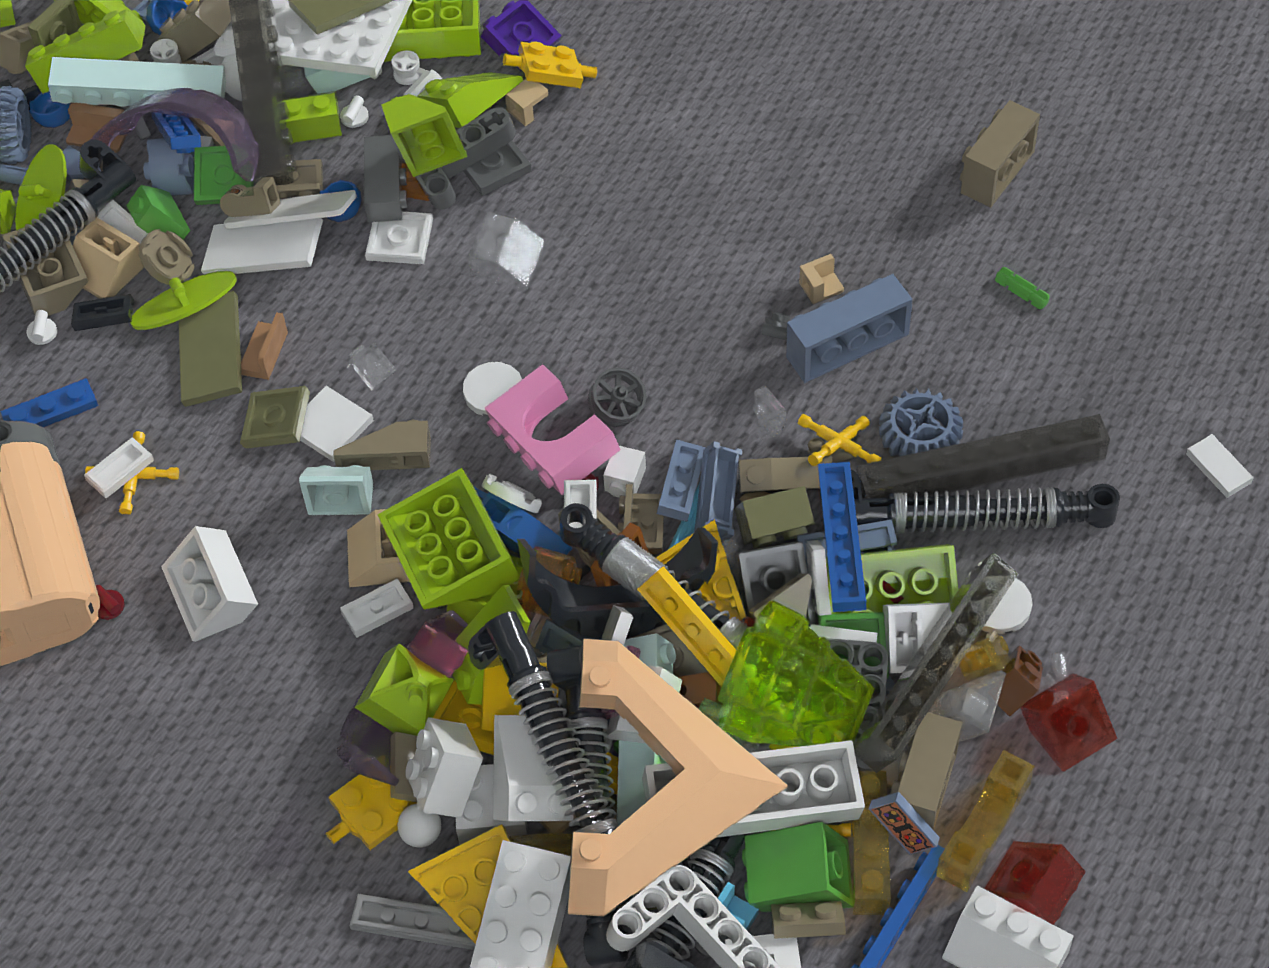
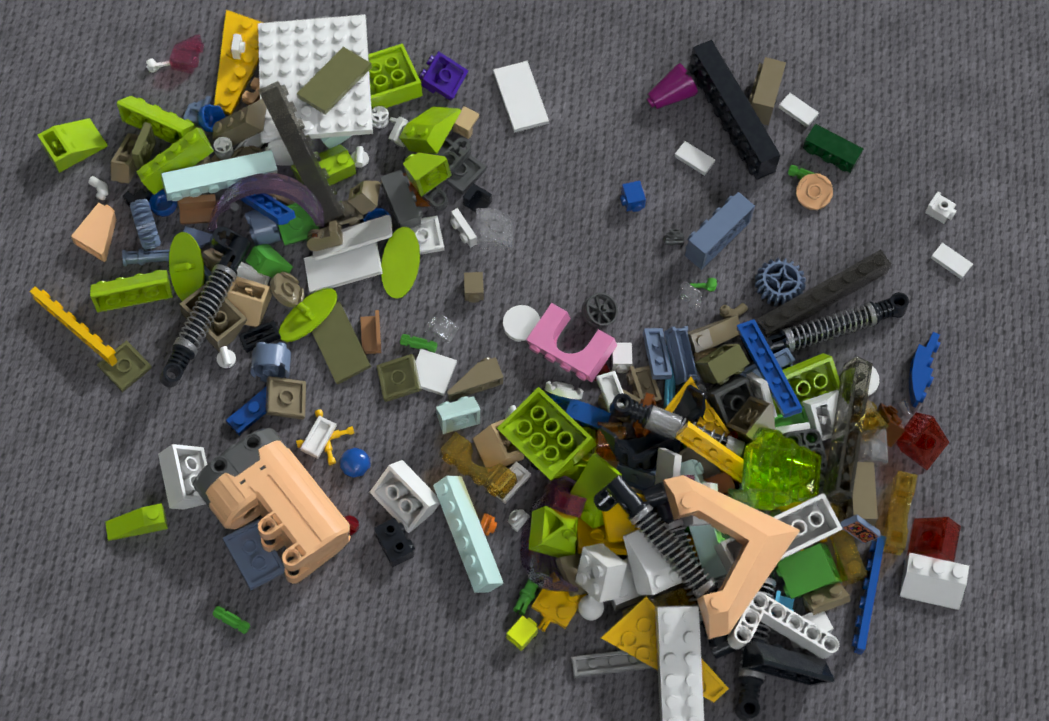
camera: 25 degrees left, 10 degrees up
(96, 346) = (270, 360): none -> sand blue brick
(98, 402) = (285, 397): none -> dark tan tile
(158, 518) = (354, 462): none -> blue hair
(161, 645) = (393, 542): none -> black brick
(275, 663) = (468, 534): none -> light aqua brick
(296, 833) = (522, 632): none -> neon yellow brick
(313, 659) = (488, 524): none -> orange plate
(326, 377) = (418, 343): none -> bright green axle
(327, 781) = (526, 596): none -> bright green pin
(333, 158) = (365, 196): none -> dark tan slope
(347, 261) = (400, 262): none -> lime shield
(350, 591) = (496, 479): none -> clear yellow arch
(364, 664) = (517, 519): none -> white plate
(441, 319) = (473, 286): none -> dark tan brick
(458, 229) = (466, 233): none -> white plate
(499, 199) = (477, 198): none -> black panel
(550, 64) = (472, 95): yellow plate -> none
(625, 87) = (520, 96): none -> white tile
(735, 253) = (633, 196): none -> blue brick
(808, 406) = (709, 286): none -> bright green hand
(819, 279) = (688, 201): tan panel -> none
(838, 440) = (738, 304): yellow piece -> none
(854, 121) = (672, 88): none -> magenta cone
(855, 225) = (694, 158): none -> white tile
(938, 169) = (734, 110): none -> black brick
(1026, 312) = (814, 191): none -> light nougat tile
(1046, 196) = (798, 110): none -> white tile
(1079, 258) = (832, 148): none -> dark green brick
(1107, 609) = (920, 370): none -> blue slope
(1227, 383) = (941, 208): none -> white brick

